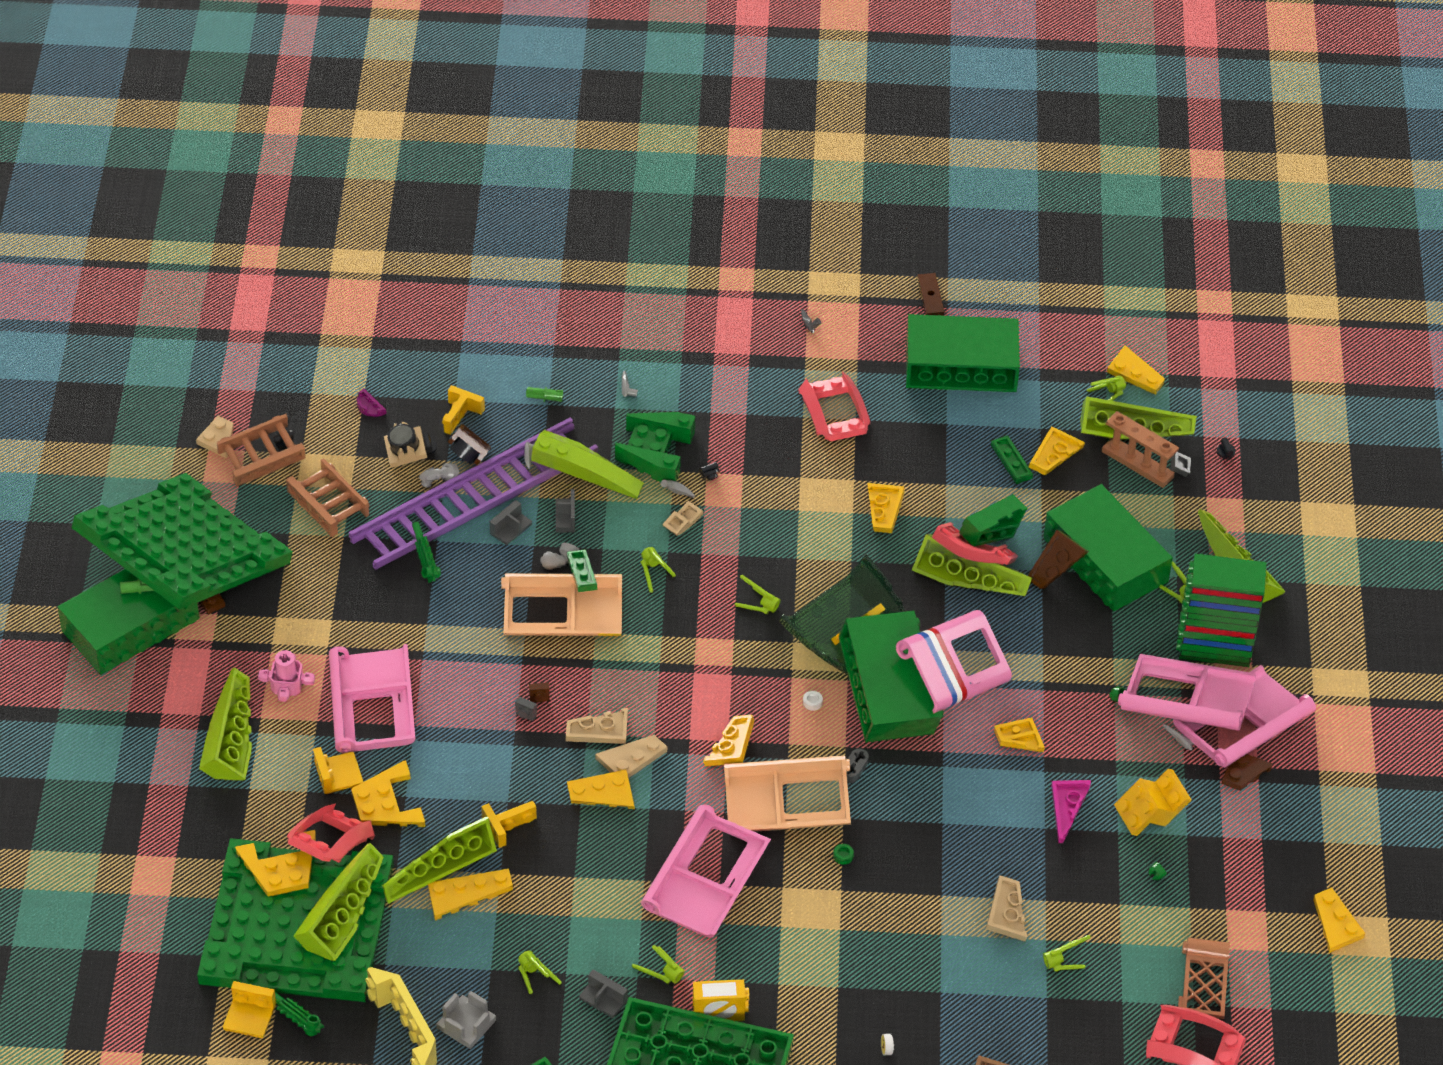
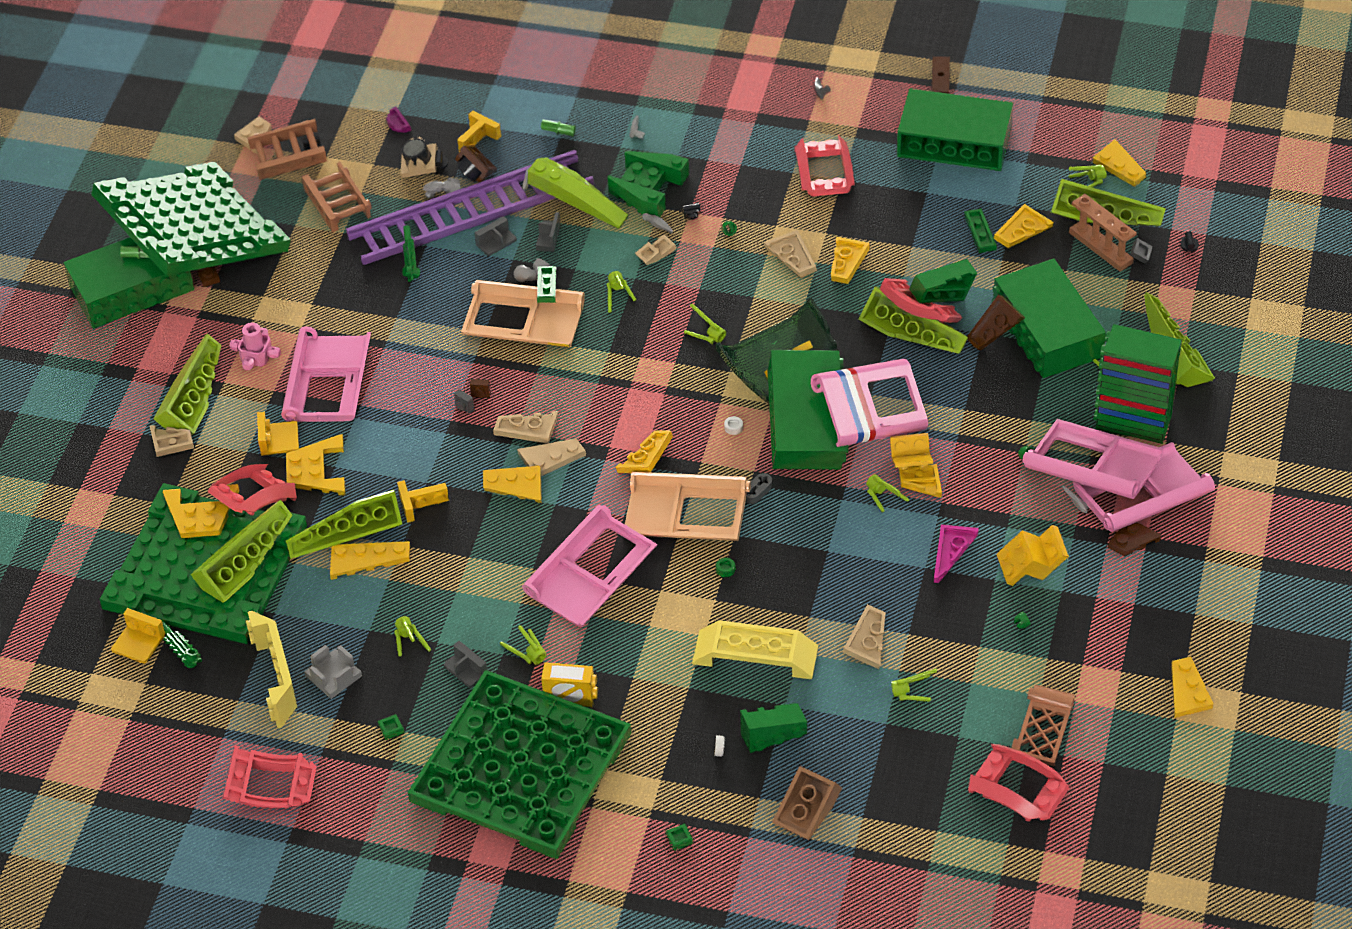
camera: 15 degrees right, 0 degrees up
(223, 789) = (171, 440): none -> tan wing
(755, 483) = (732, 226): none -> green hinge
(826, 505) = (792, 252): none -> tan wing
(898, 934) = (756, 645): none -> light yellow slope
(936, 1017) = (772, 726): none -> green wedge
(978, 747) = (878, 485): none -> lime plant
(1003, 707) = (910, 451): none -> yellow bracket

